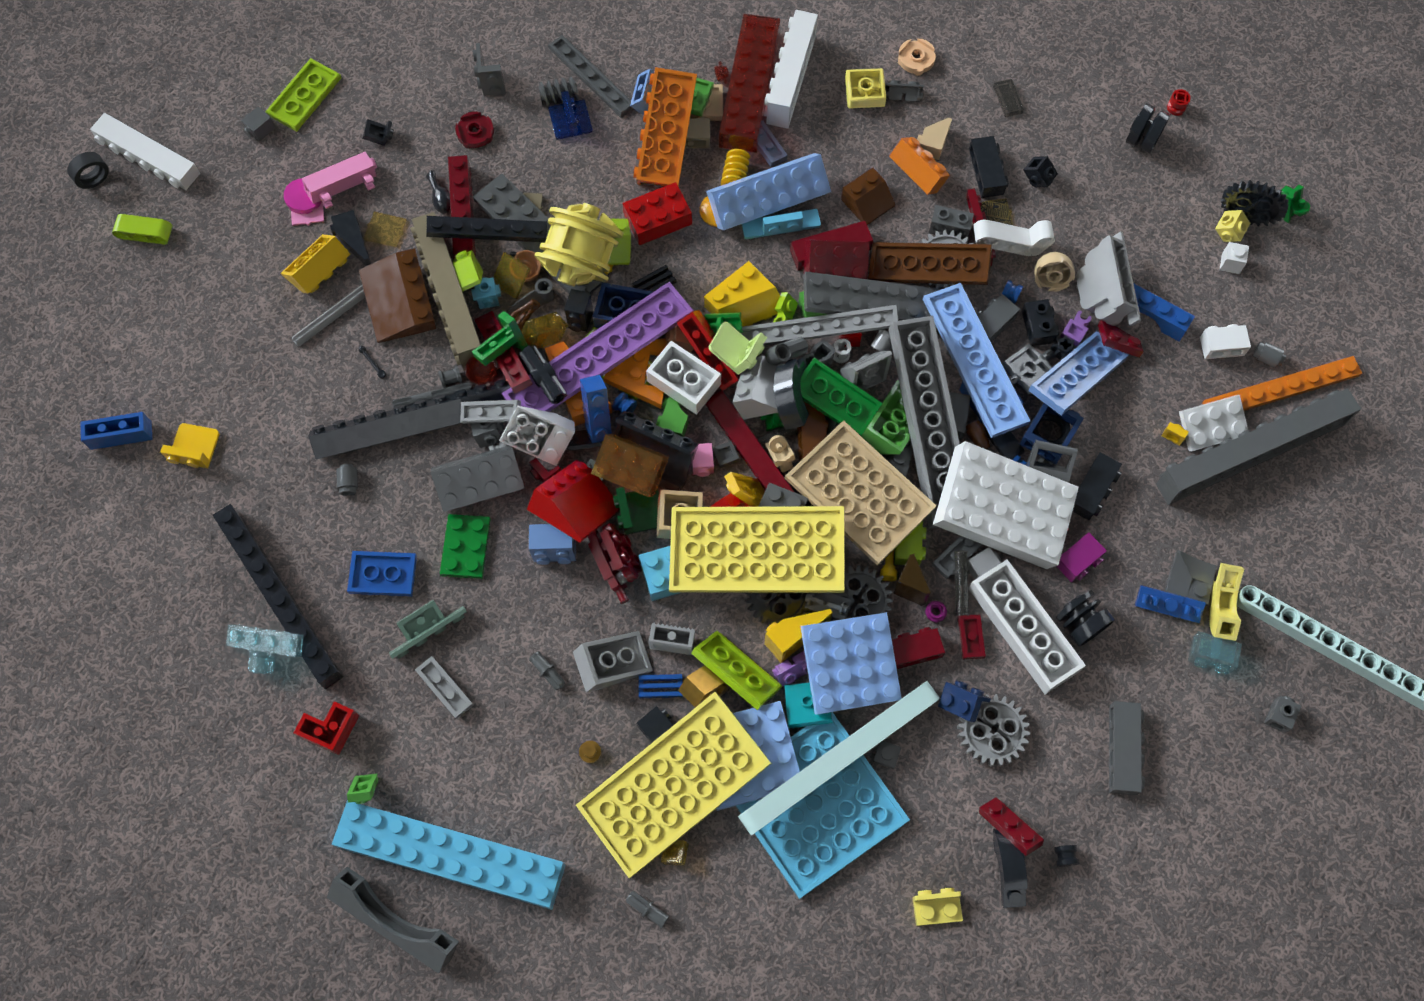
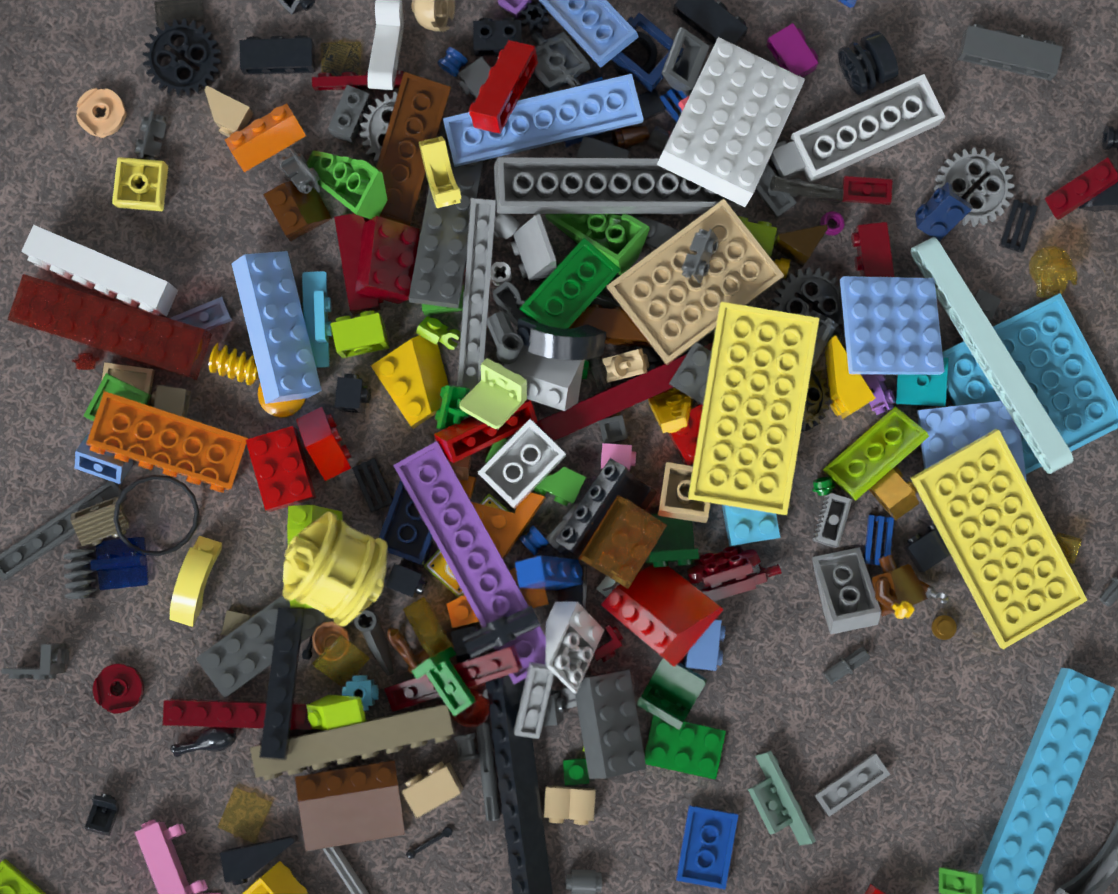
camera: 80 degrees left, 15 degrees up
(410, 460) = (569, 803): none -> tan brick
(414, 351) = (433, 789): none -> tan brick
(436, 460) = (575, 771): none -> green plate
(507, 525) = (672, 693): none -> dark green bracket
(563, 161) = (192, 579): none -> light yellow arch
(599, 96) = (97, 522): none -> dark tan brick
(618, 703) = (900, 589): none -> reddish brown torso
(636, 140) = (145, 479): none -> black piece
(679, 236) = (323, 443): none -> red brick
(702, 630) = (823, 486): none -> green plate
(724, 251) = (352, 394): none -> black brick
(772, 251) = (359, 334): none -> lime brick
(889, 492) = (698, 265): none -> dark grey hinge
(891, 226) = (351, 182): none -> bright green wedge
(893, 194) = (305, 177): none -> dark grey hinge
(913, 285) = (439, 172): none -> light yellow arch
(928, 808) = (1051, 271): none -> clear yellow hair
(985, 779) = (1024, 206): none -> black tile
(986, 108) = (194, 41): none -> black gear
(996, 322) = (503, 86): none -> red brick

